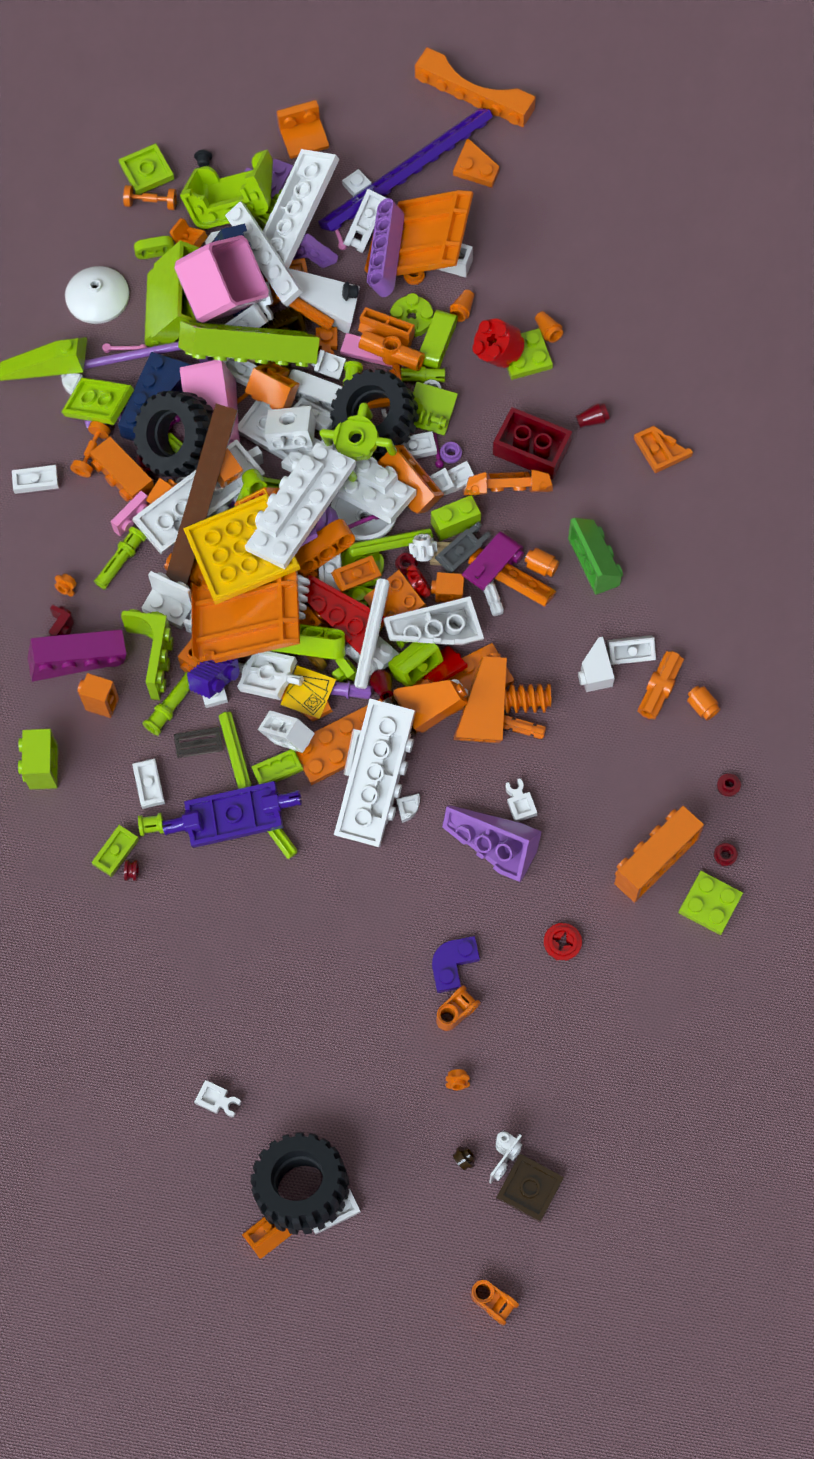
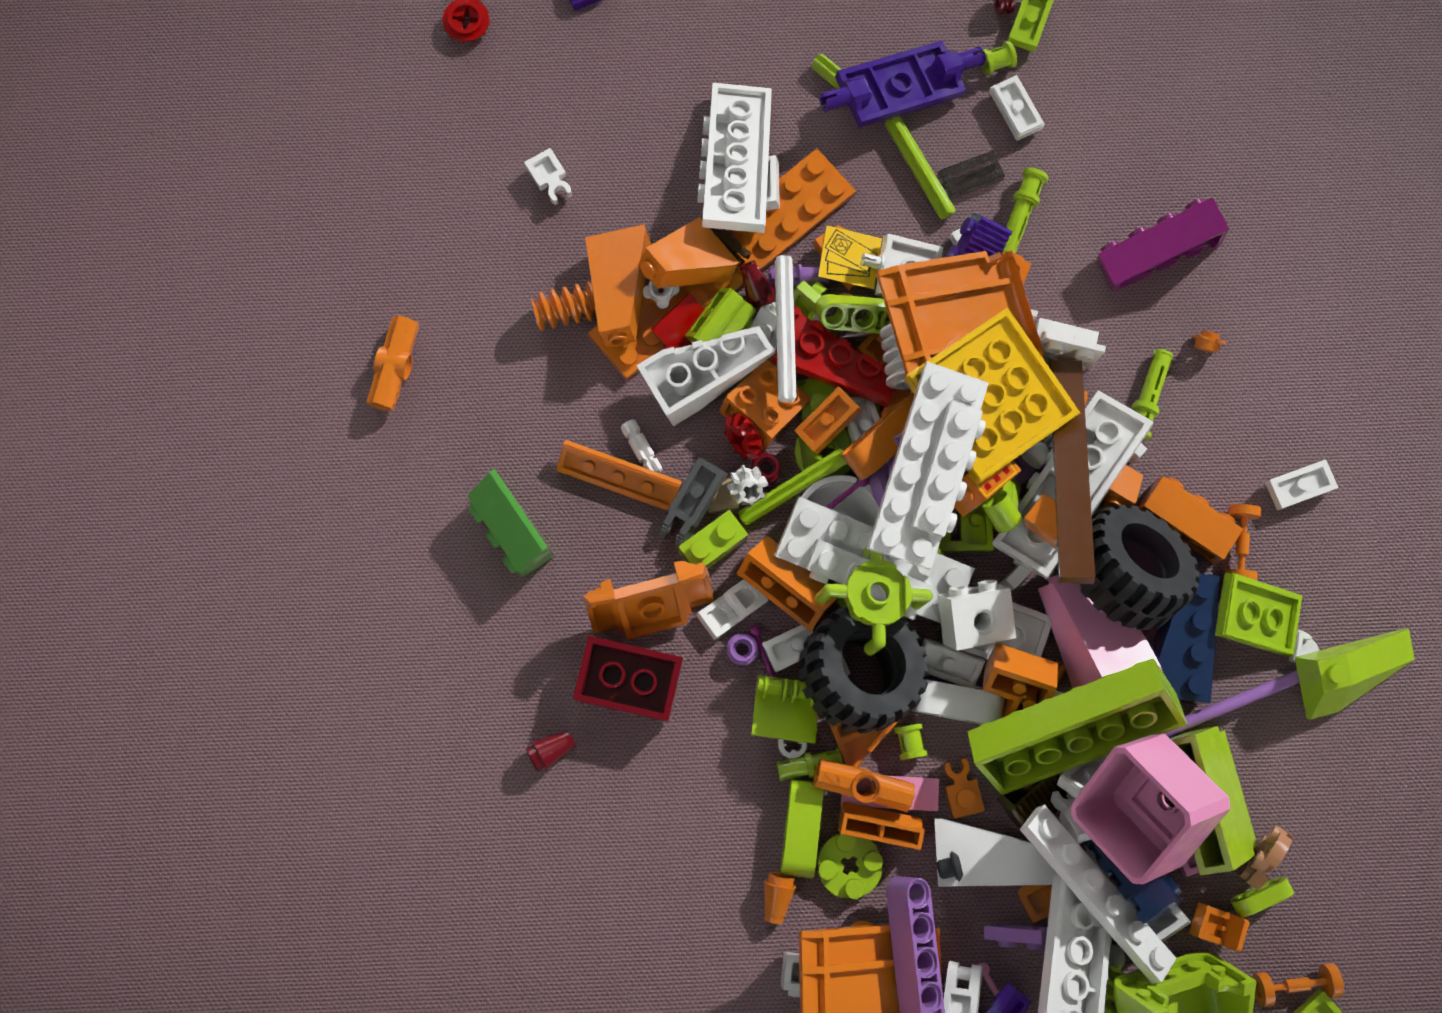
camera: 160 degrees right, 10 degrees up
(39, 759) = (1161, 96): lime brick -> none
(63, 623) = (1192, 281): dark red bracket -> none
(98, 695) = (1116, 191): orange brick -> none
(99, 303) = (1298, 798): white dish -> none
(107, 348) = (1271, 715): bright pink hinge -> none
(123, 520) = (1160, 449): bright pink plate -> none
(144, 262) = (1269, 855): none -> nougat plate
(157, 628) = (1062, 284): lime bracket -> none
(277, 767) = (864, 157): lime plate -> none
(286, 731) = (864, 190): white brick -> none
(311, 313) = (993, 822): orange axle -> none
(329, 365) = (949, 750): white bracket -> none
(408, 806) = (688, 146): white tile -> none
(447, 587) = (701, 440): orange brick -> none
(493, 559) = (646, 487): magenta door -> none
(498, 343) = (709, 830): red brick -> none
(500, 841) = (553, 119): medium lavender wedge -> none
(524, 727) = (562, 274): orange axle -> none
(534, 356) = (668, 836): lime plate -> none
(541, 562) = (581, 504): orange brick -> none
(549, 328) = (642, 887): orange cone -> none
(596, 668) = (482, 368): white slope -> none
(631, 649) = (441, 412): white slope -> none
(658, 854) = (361, 131): orange brick -> none
(659, 449) = (444, 716): orange wing -> none
(703, 702) = (333, 349): orange brick -> none
(710, 902) = (292, 103): lime plate -> none
(726, 791) = (290, 258): dark red plate -> none
(730, 849) = (275, 157): dark red plate -> none

